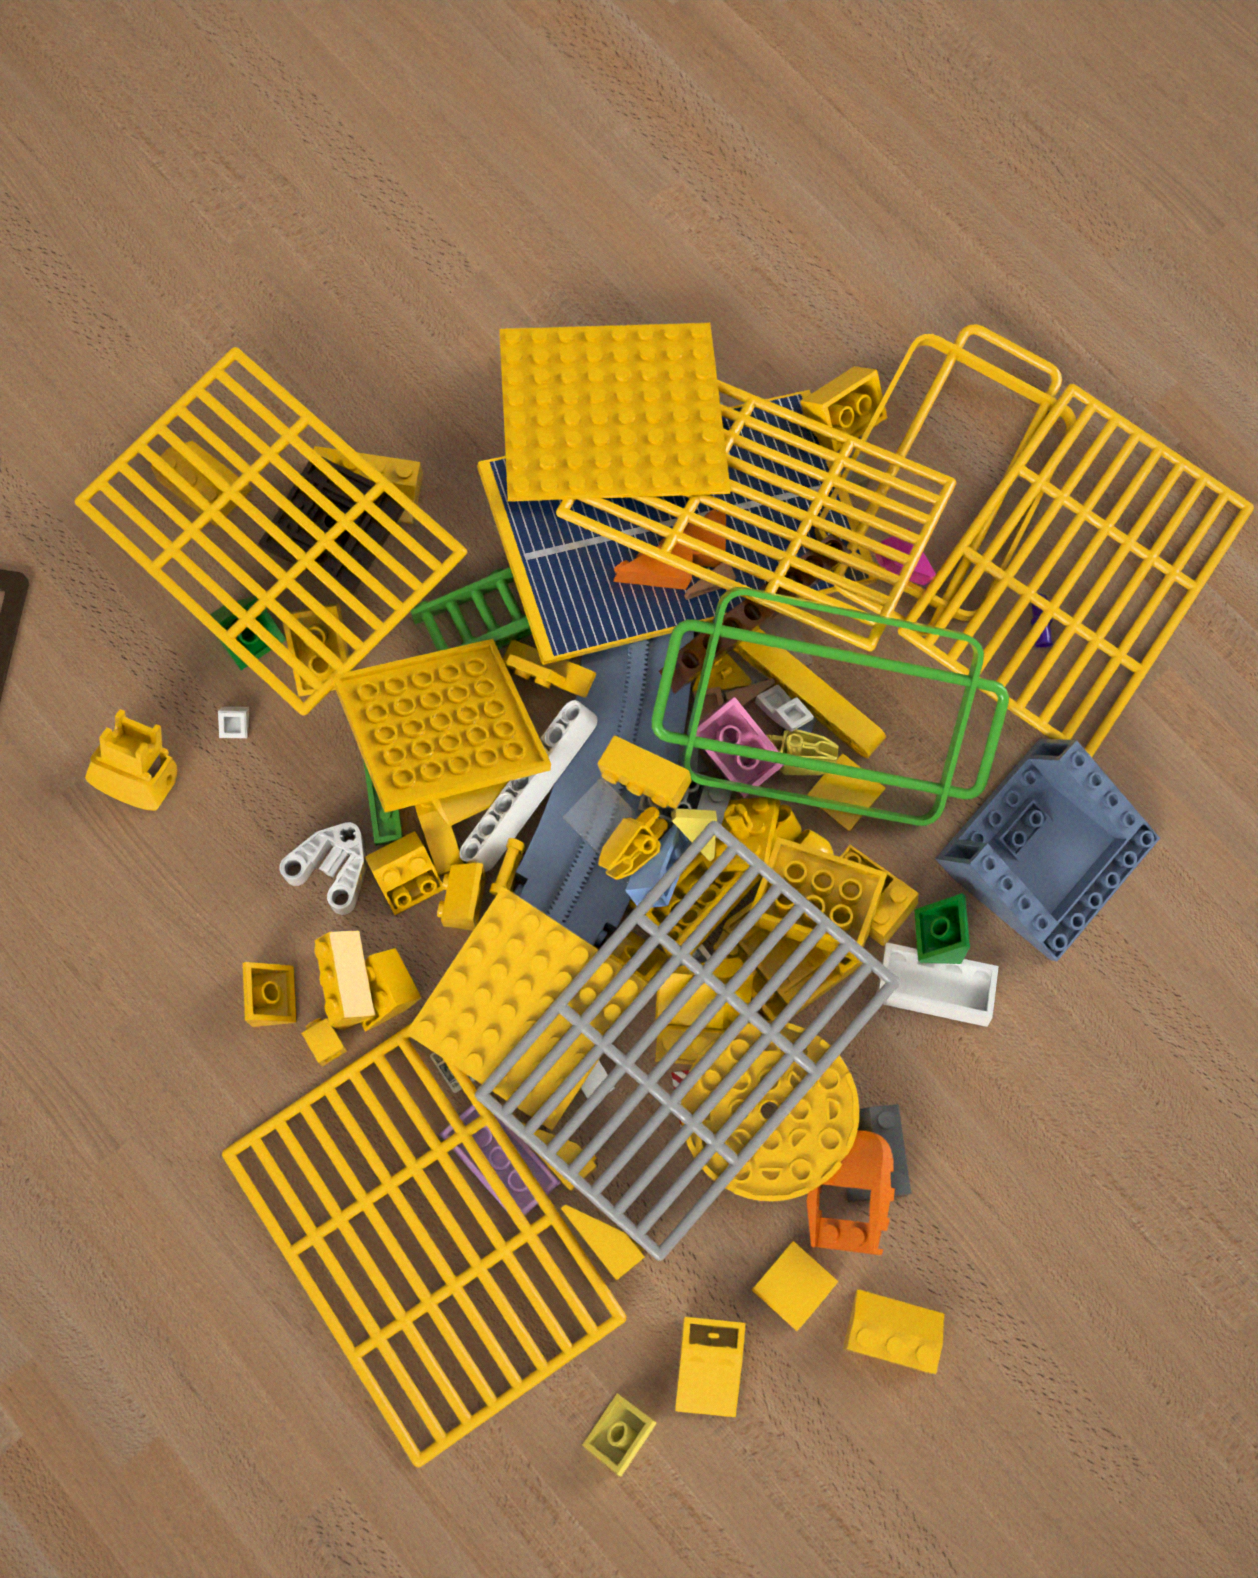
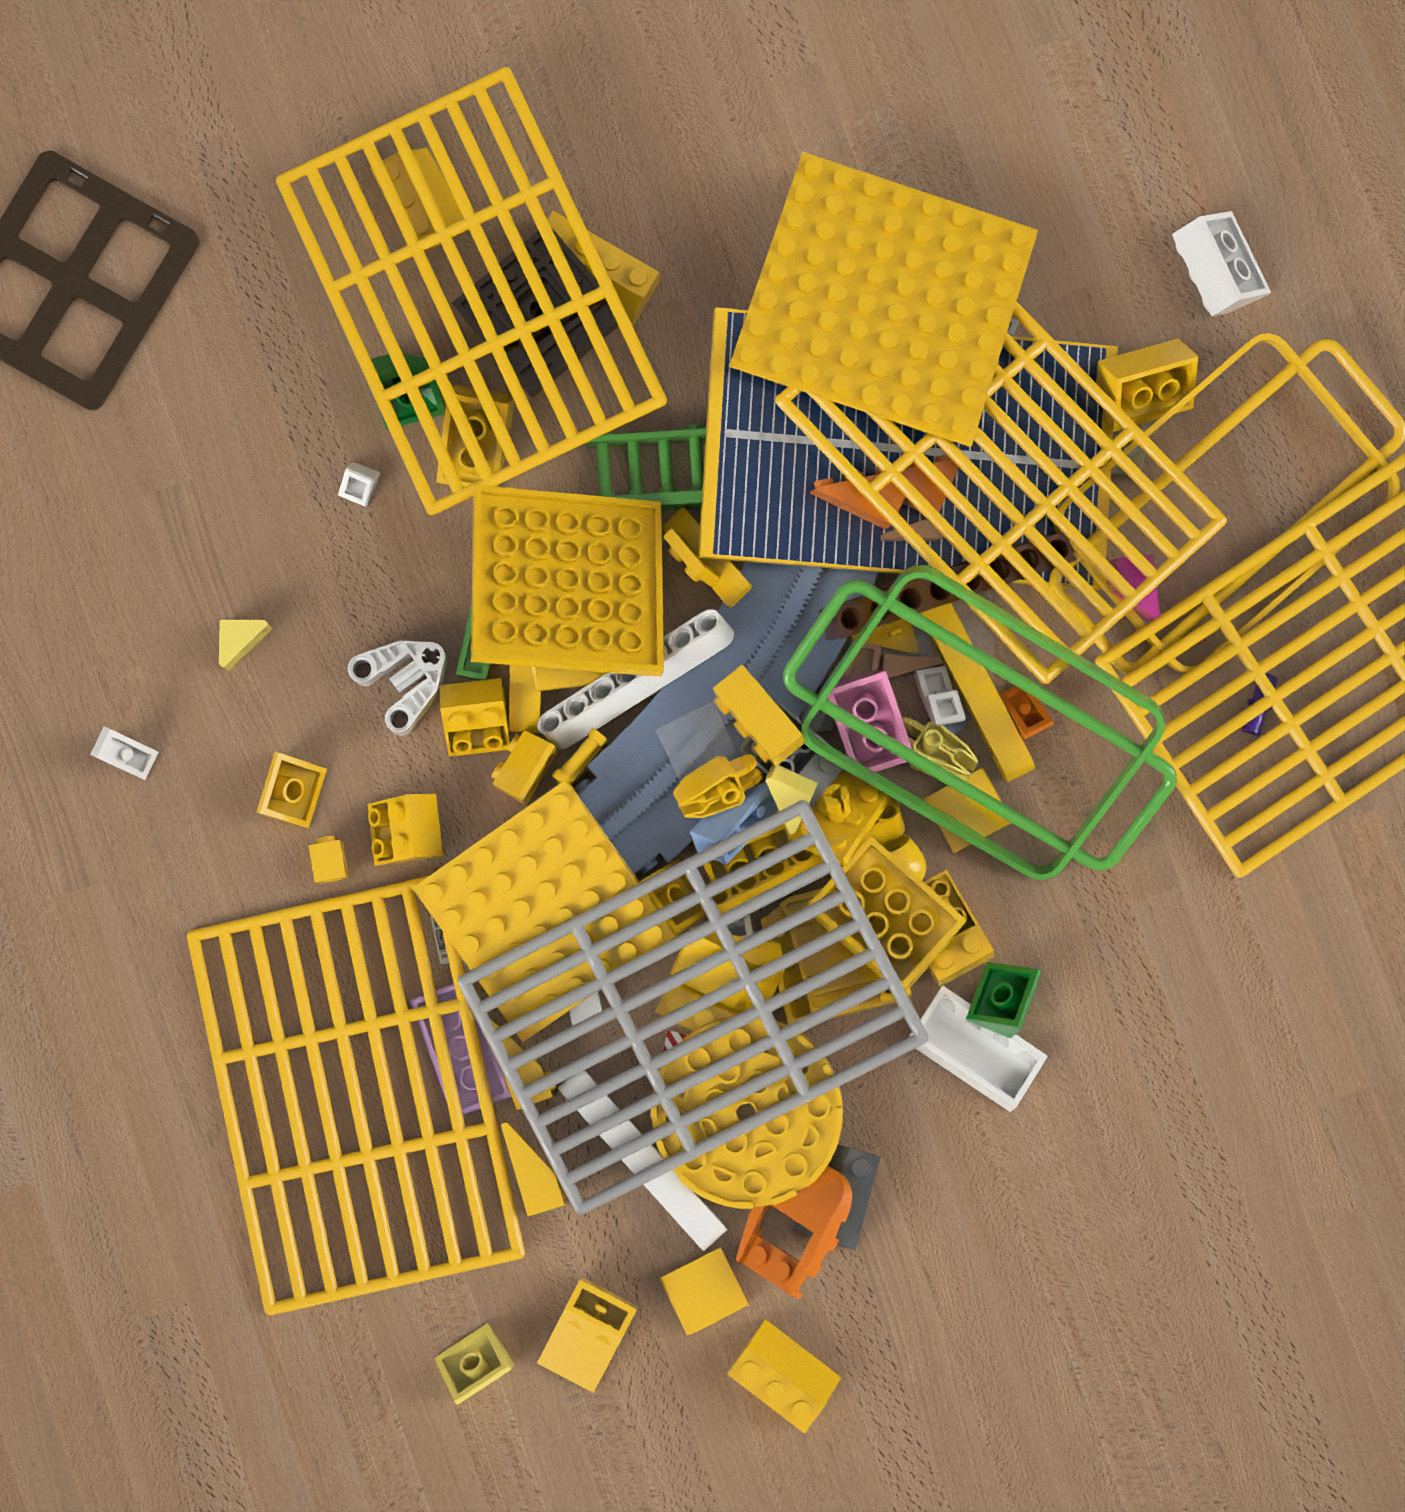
camera: 25 degrees right, 10 degrees up
(110, 1018) = (124, 753): none -> white slope
(123, 760) = (232, 487): yellow piece -> none
(178, 883) = (239, 638): none -> light yellow slope
(344, 978) = (370, 807): yellow slope -> none
(727, 1207) = (673, 1195): none -> white beam
(860, 302) = (1220, 263): none -> white slope
(860, 692) = (1025, 712): none -> orange slope
(1049, 845) = (1156, 952): sand blue slope -> none

